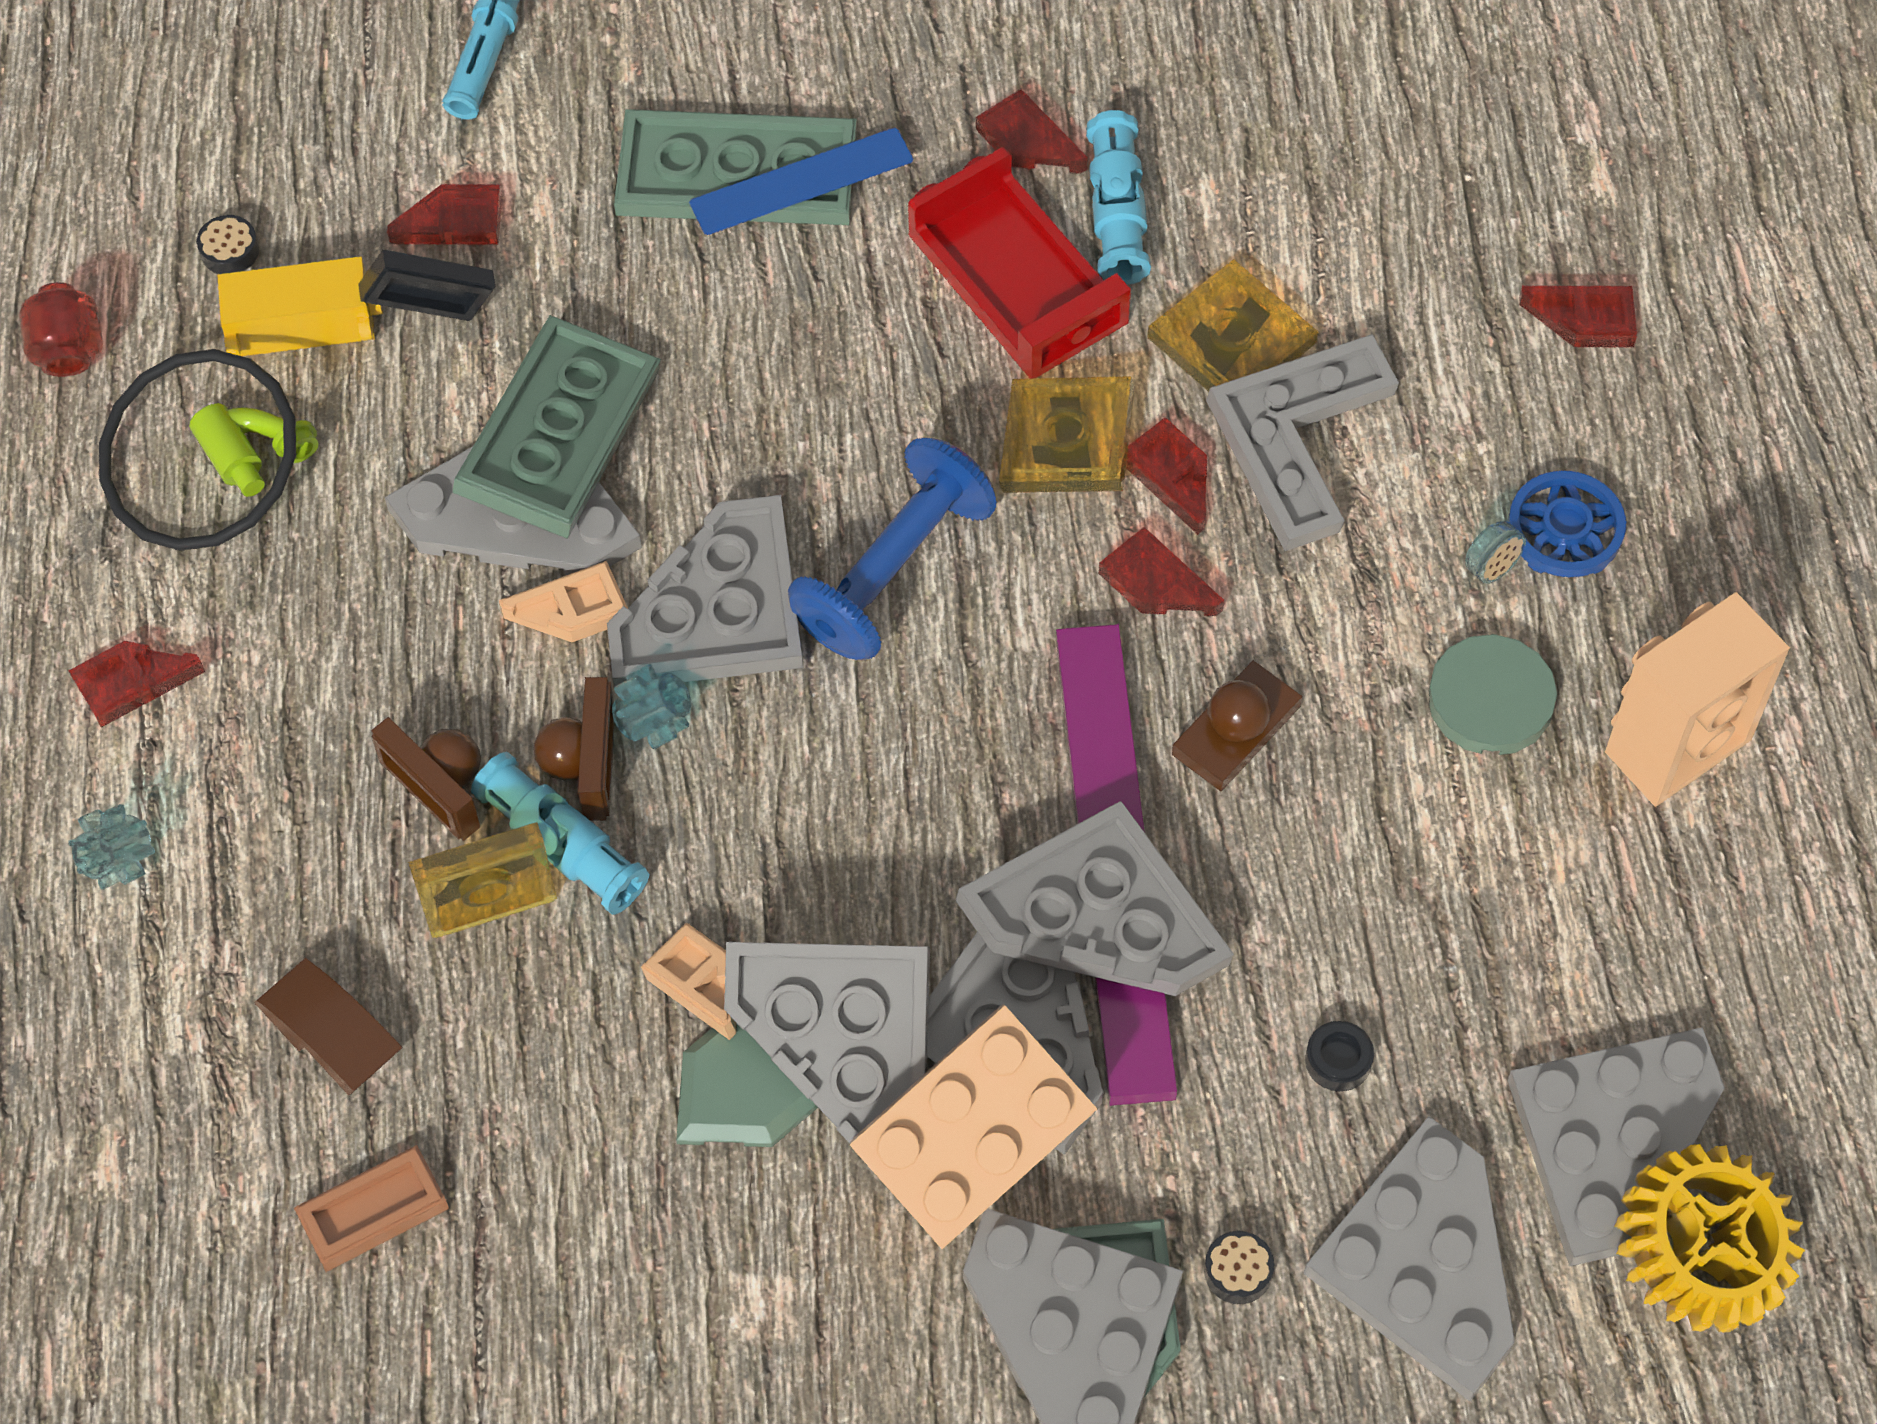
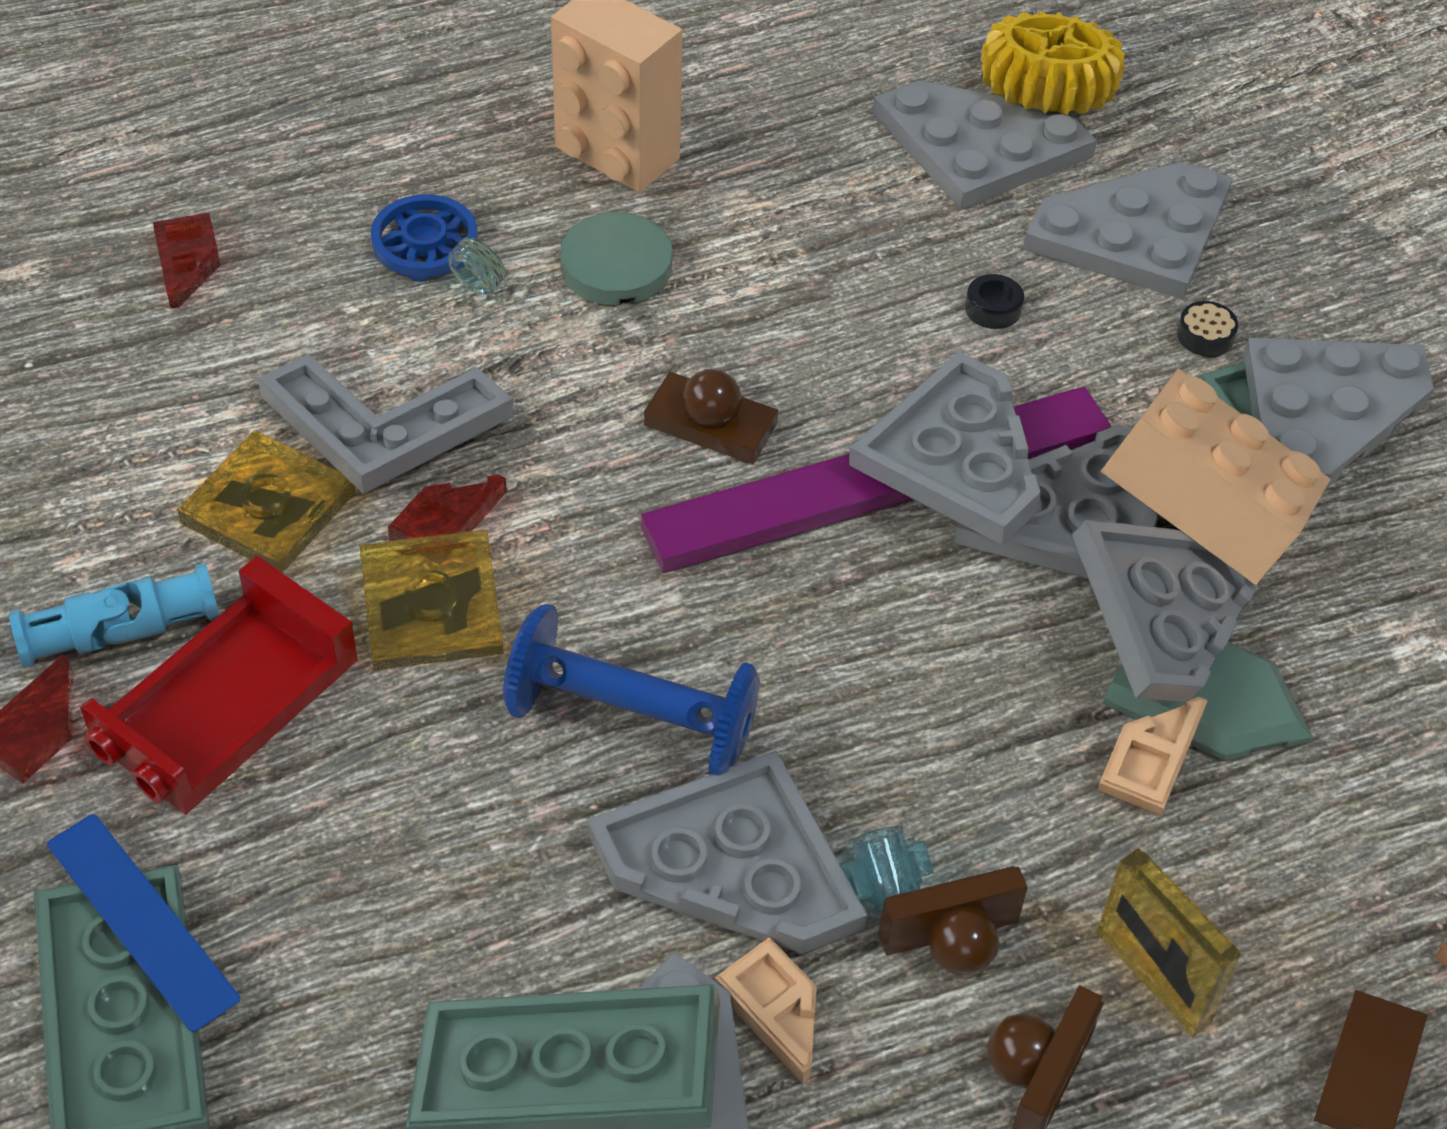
camera: 110 degrees left, 10 degrees down
(570, 839) = (1058, 919): medium azure piece -> none
(1156, 578) = (572, 505): clear red tile -> none

